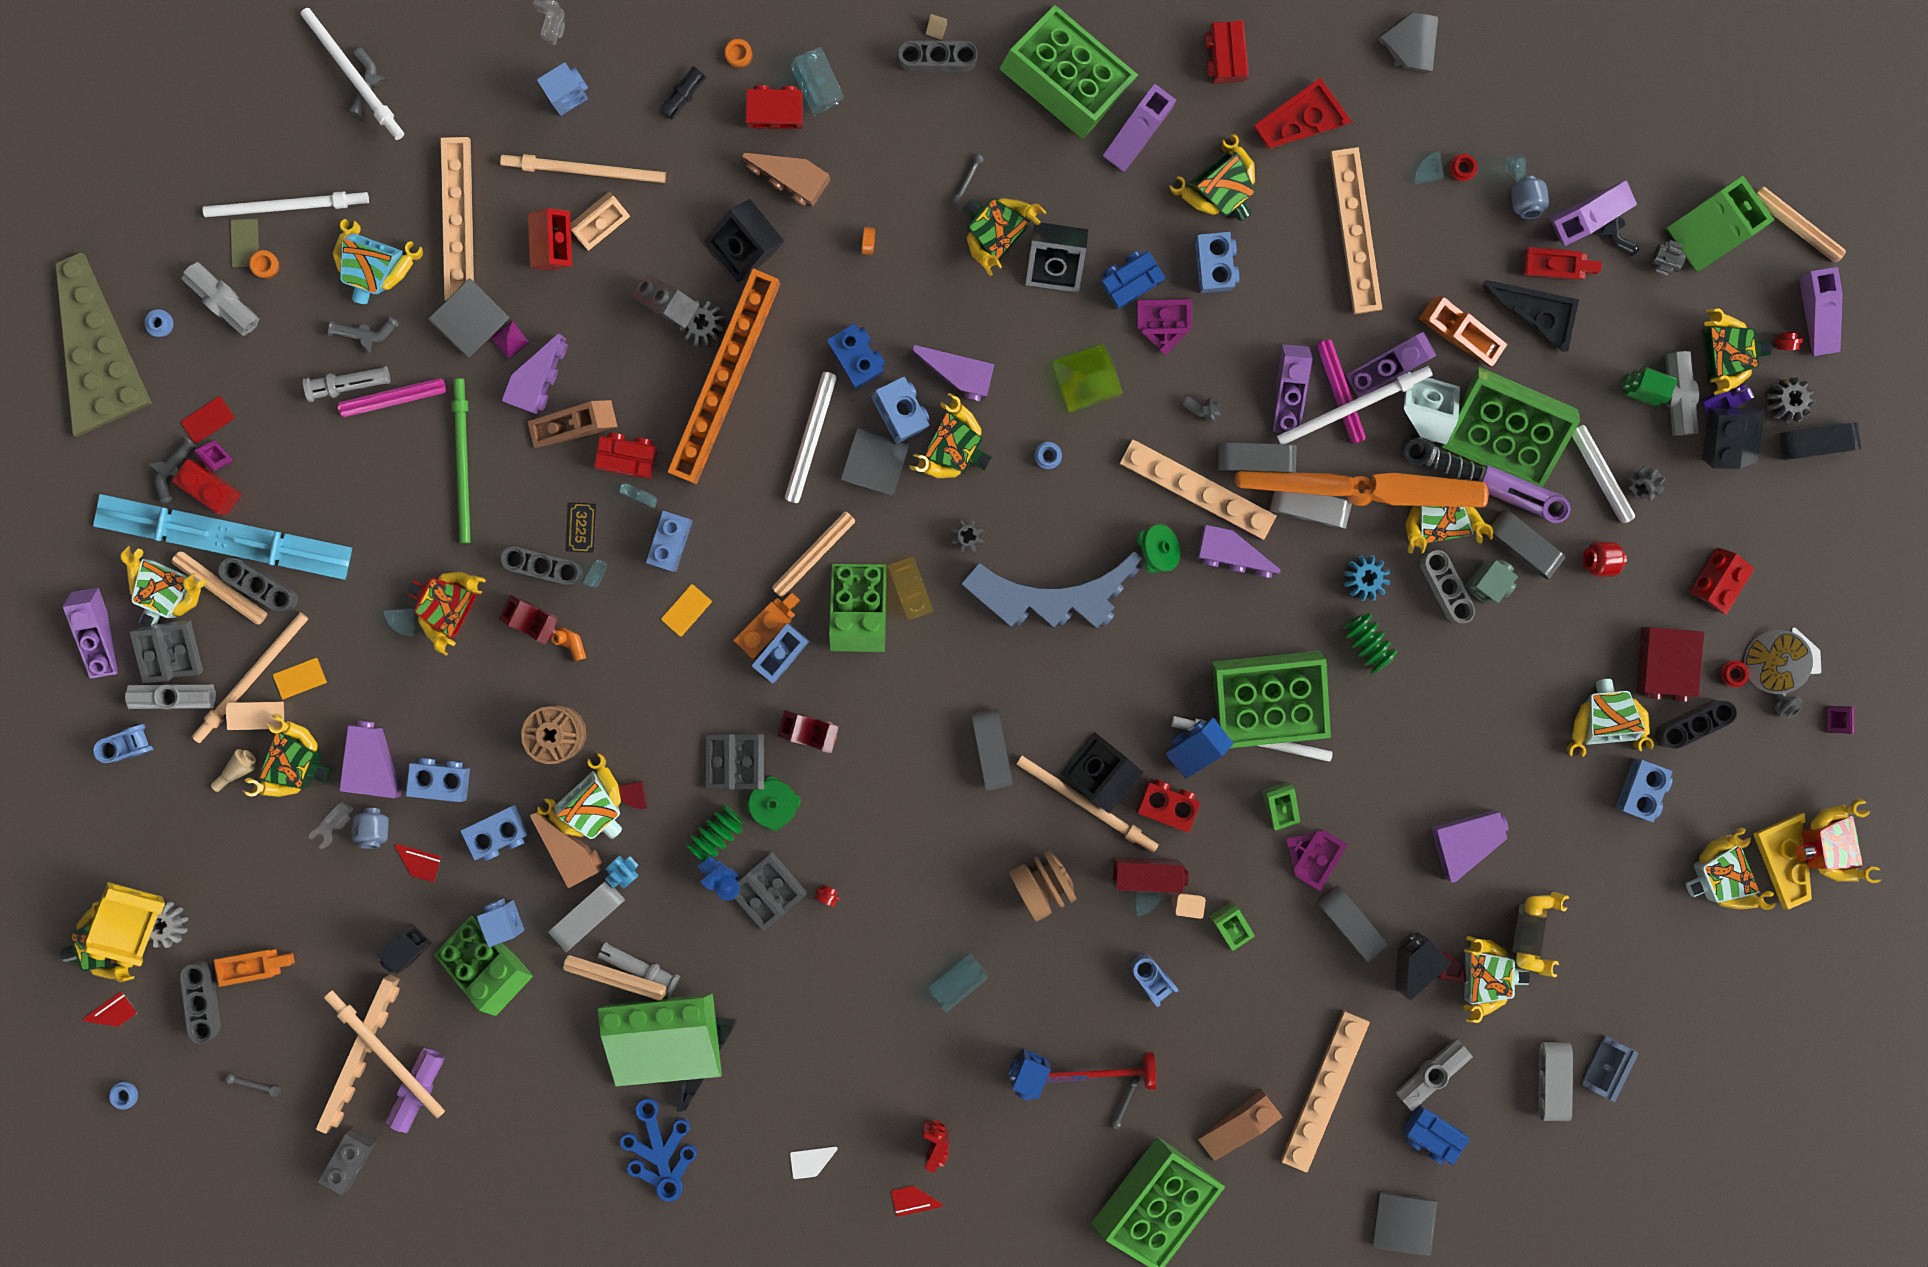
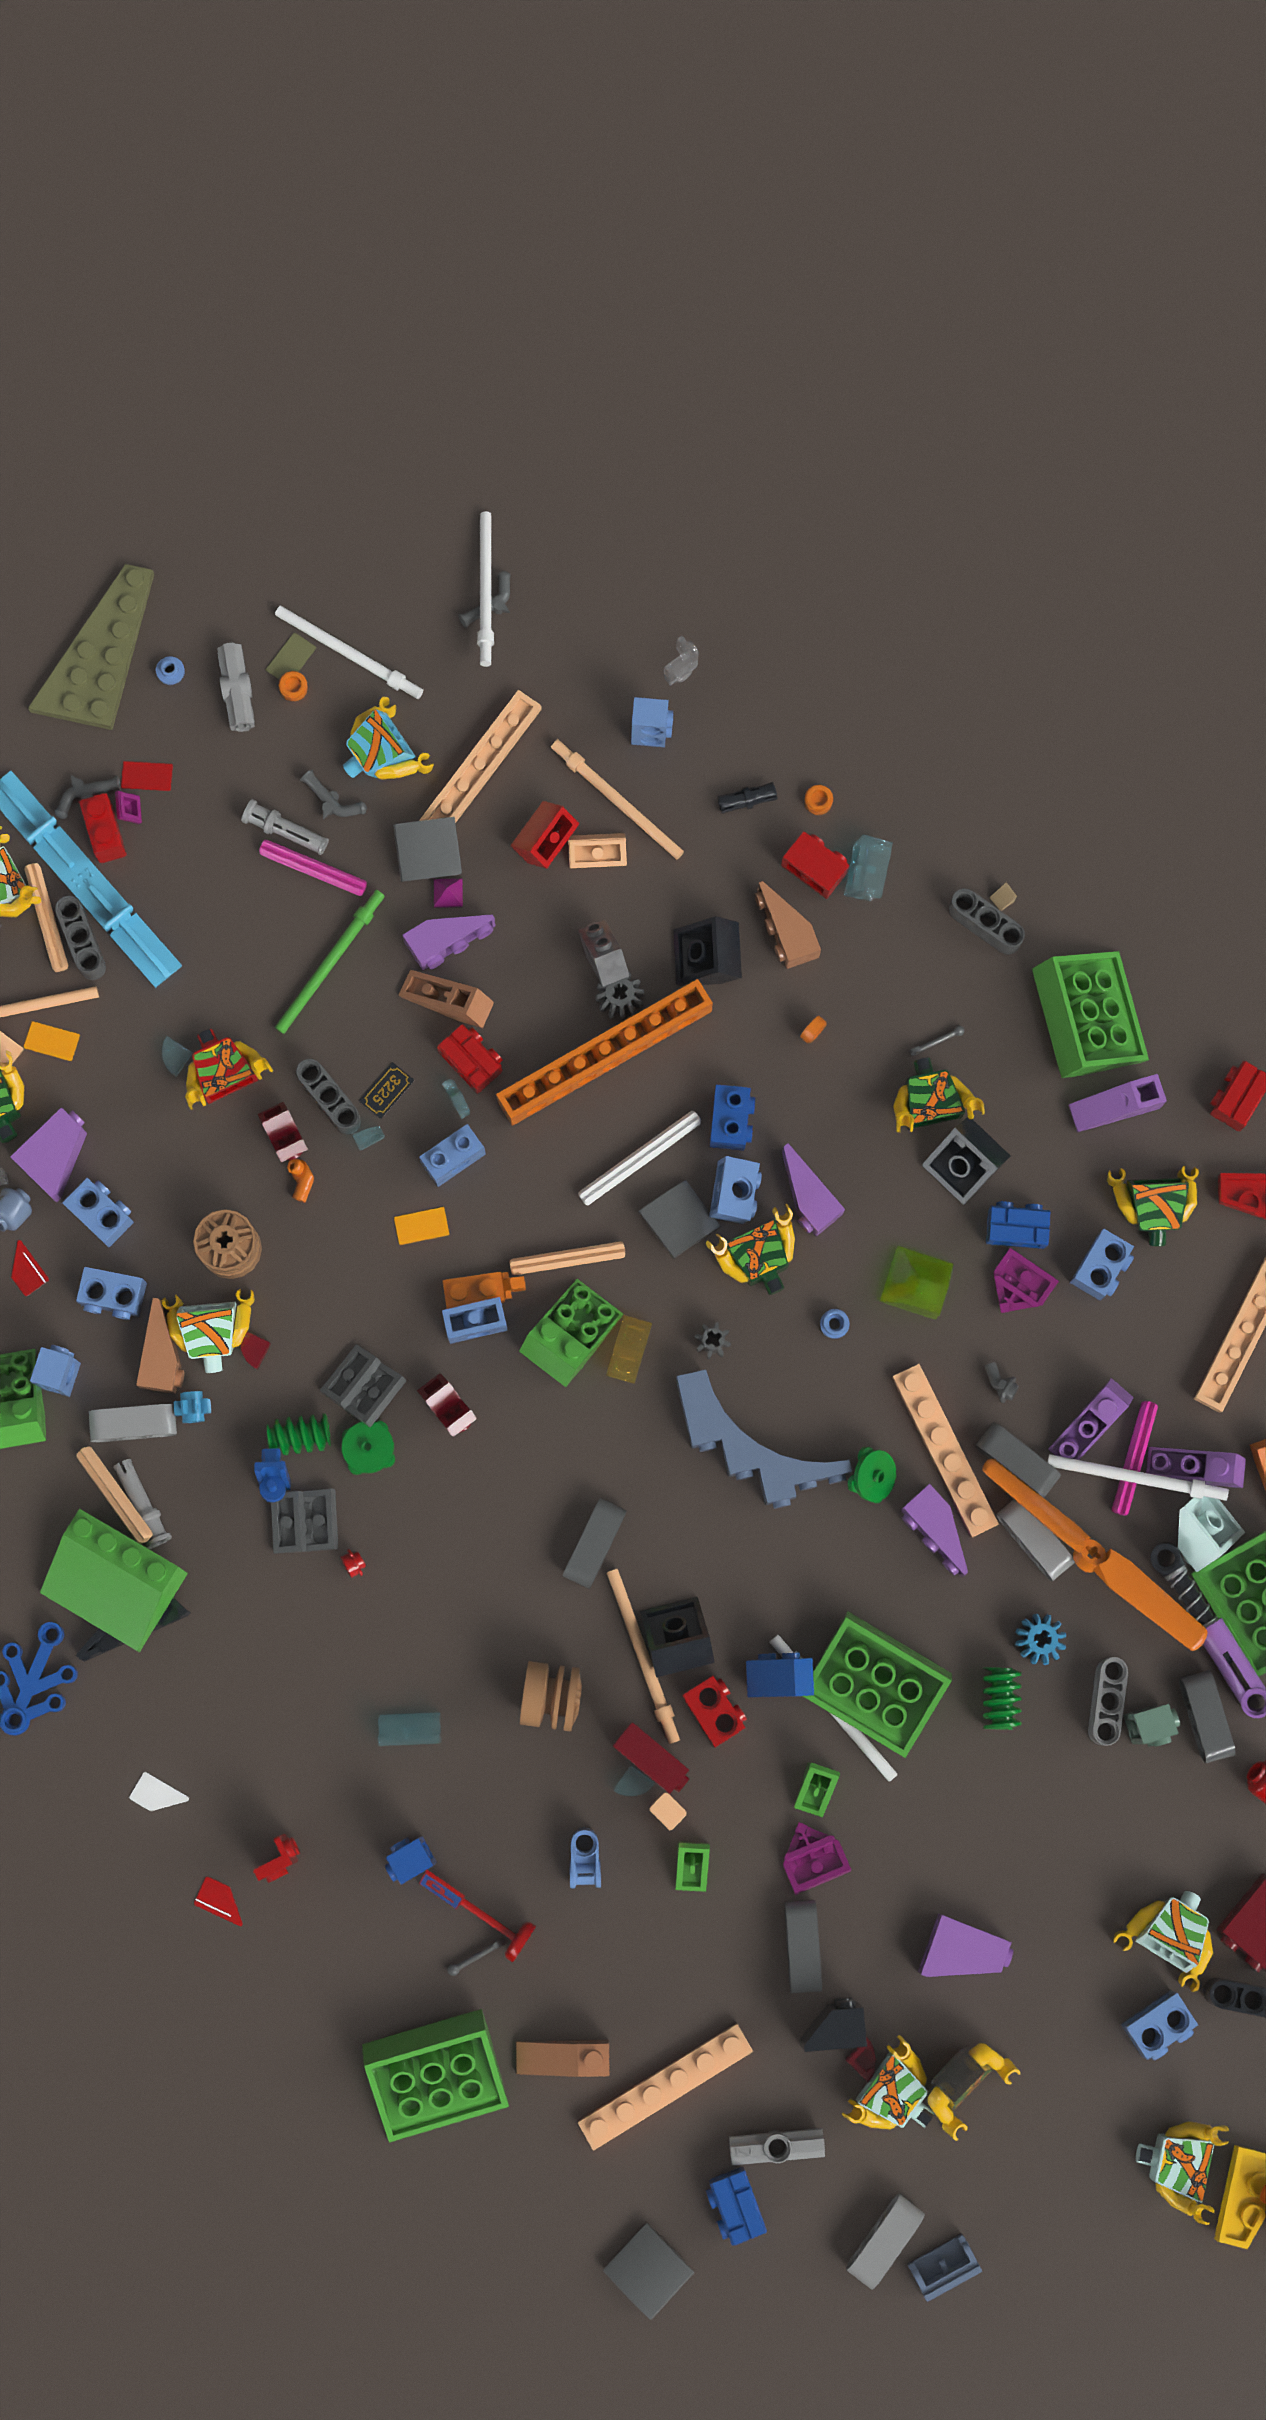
camera: 30 degrees right, 10 degrees down
(1441, 523) = (1144, 1641): torso -> none

